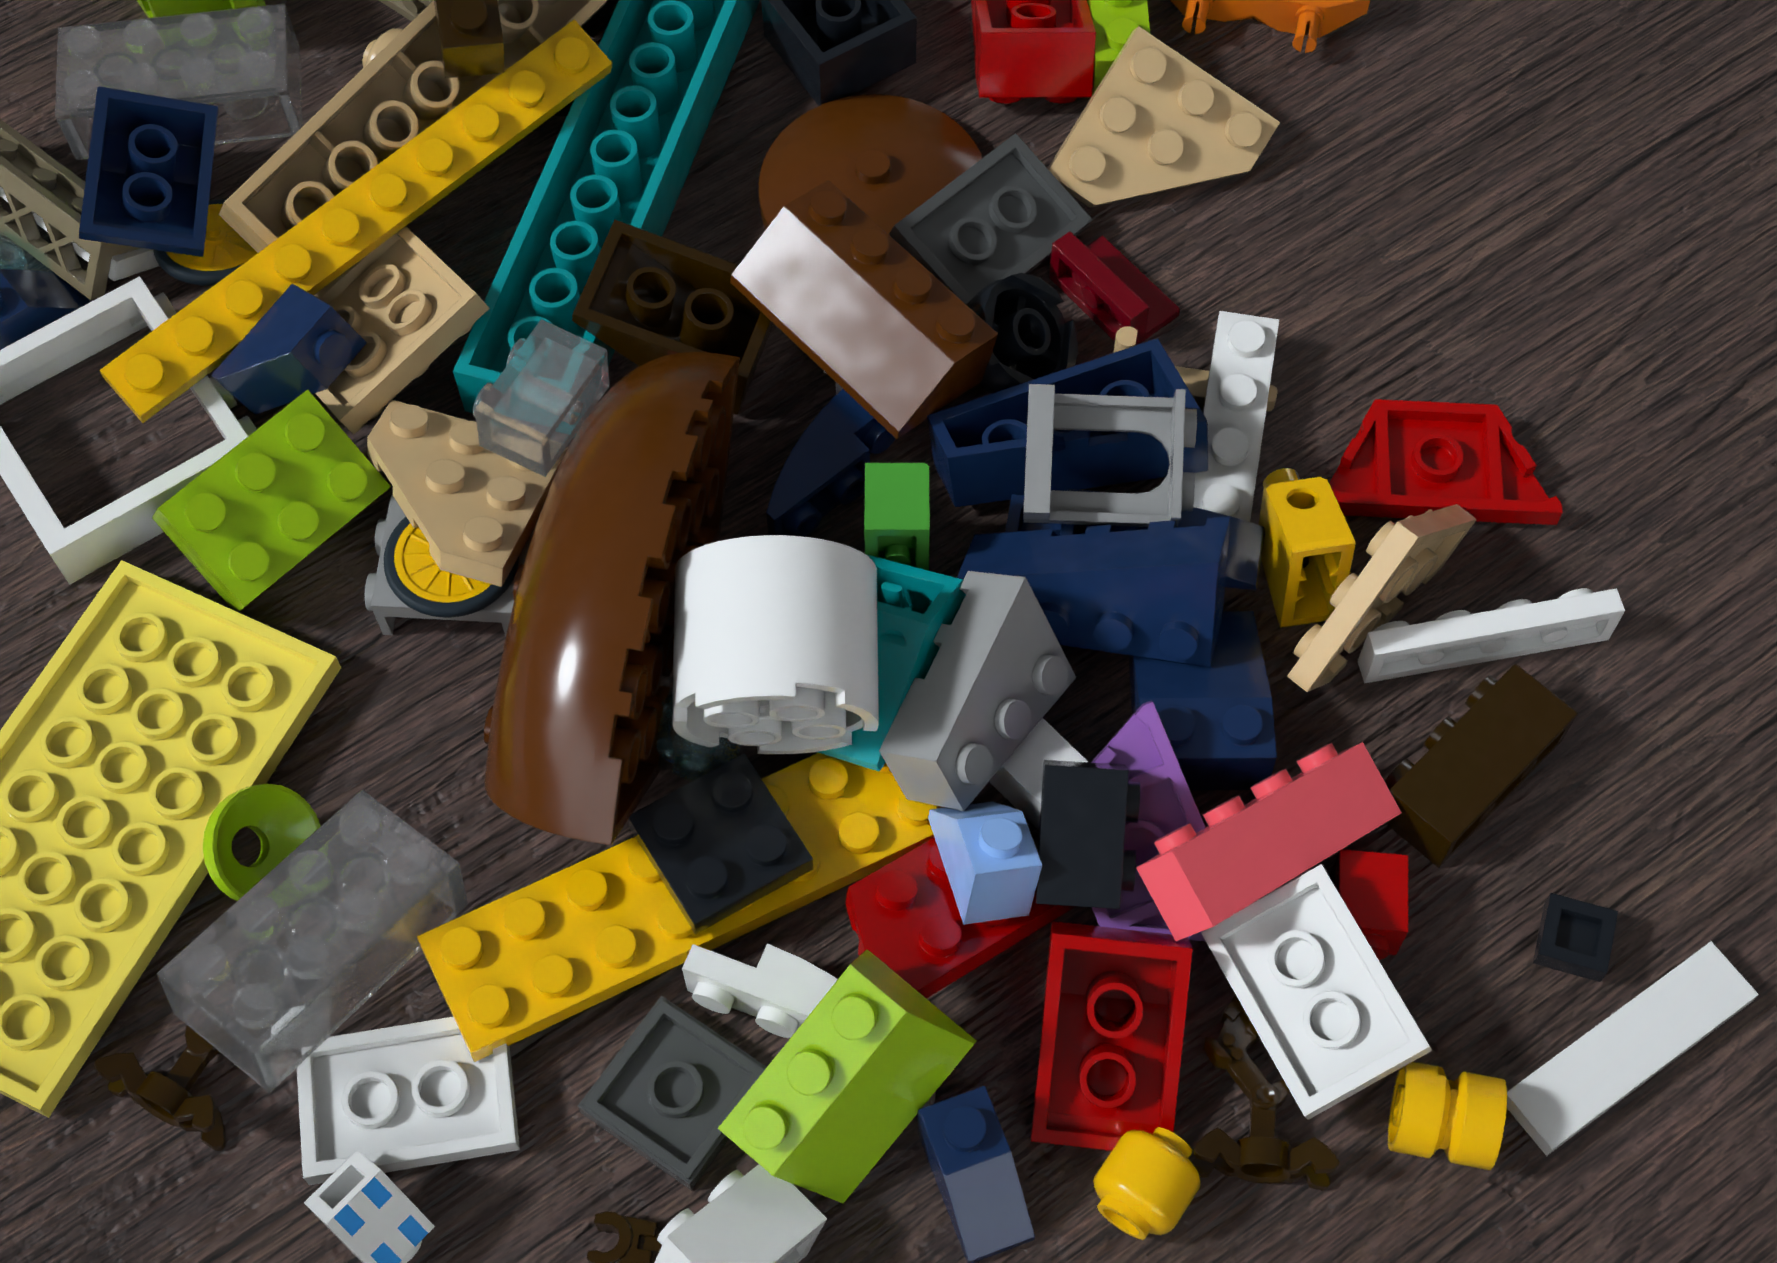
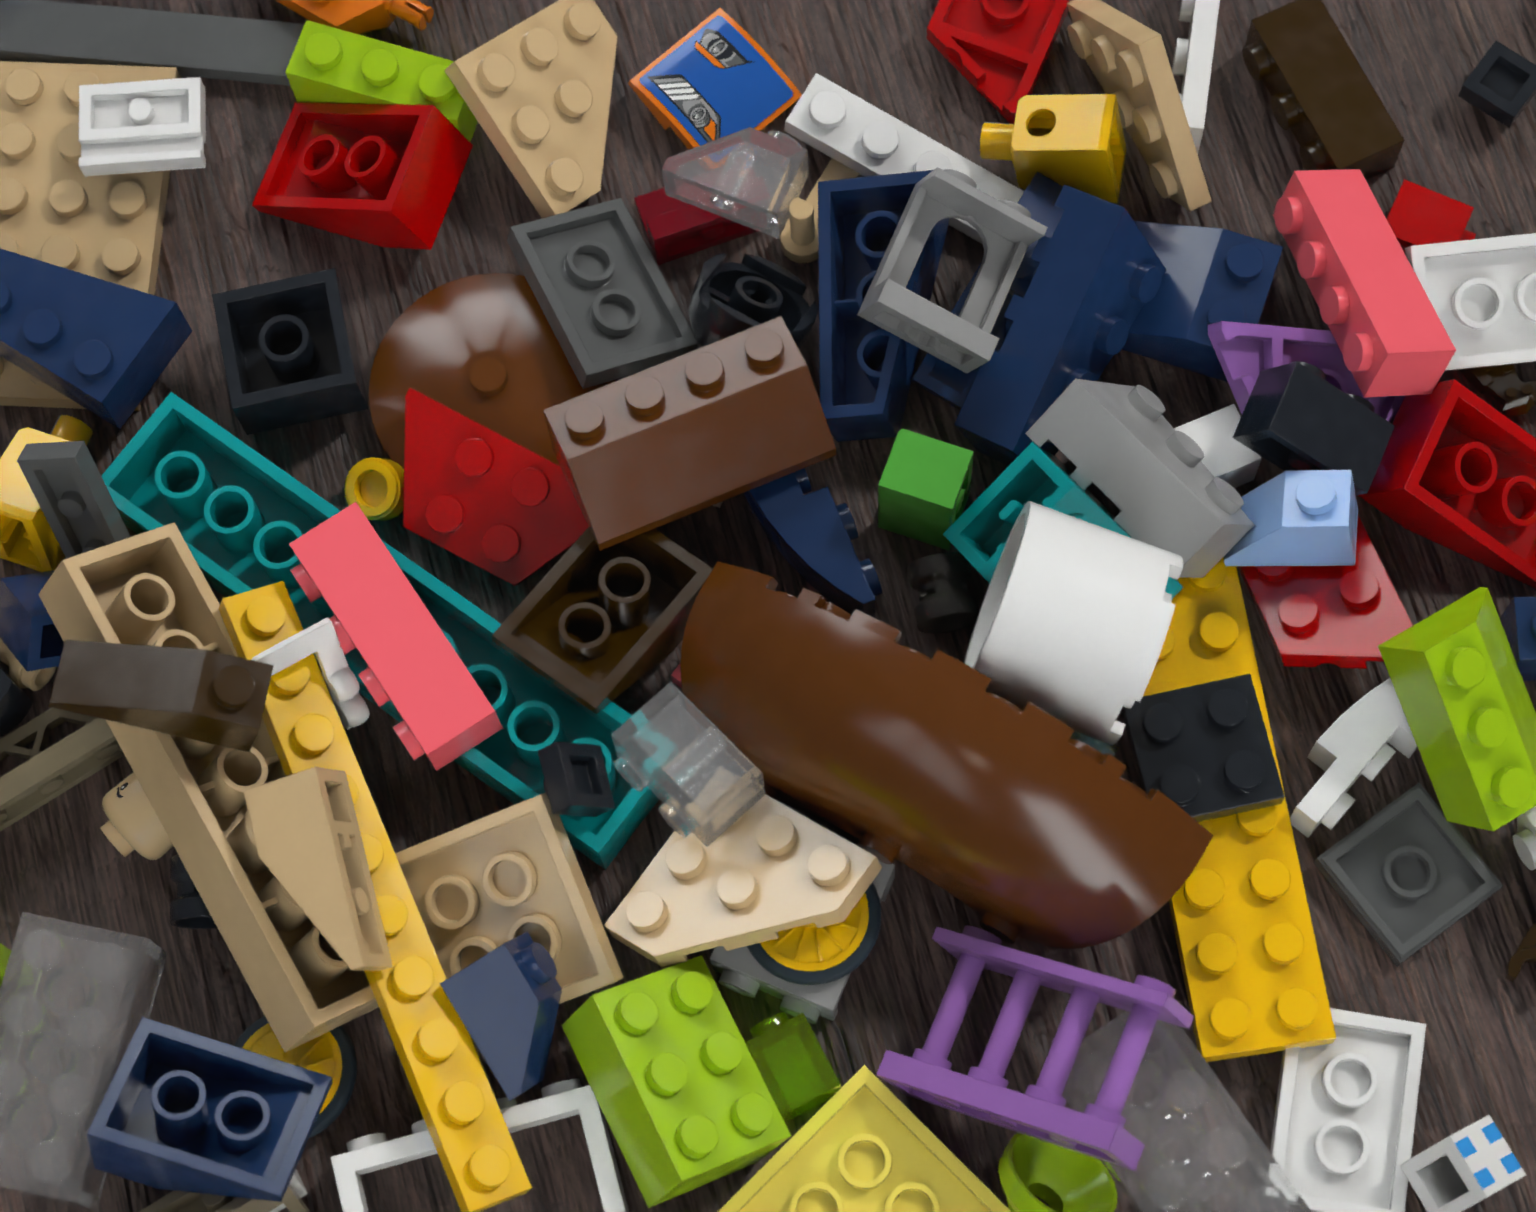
camera: 65 degrees left, 10 degrees up
(319, 599) = (792, 1064): none -> clear neon green brick
(322, 742) = (1041, 1109): none -> medium lavender fence
(353, 153) = (316, 851): none -> tan slope
(500, 318) = (576, 779): none -> black plate
(542, 131) = (339, 678): none -> white piece
(587, 153) = (396, 638): none -> coral brick
(748, 135) = (376, 488): none -> yellow tile
(762, 177) = (484, 493): none -> red wing
(1136, 279) = (741, 178): none -> clear slope
(1232, 257) = (714, 83): none -> slope

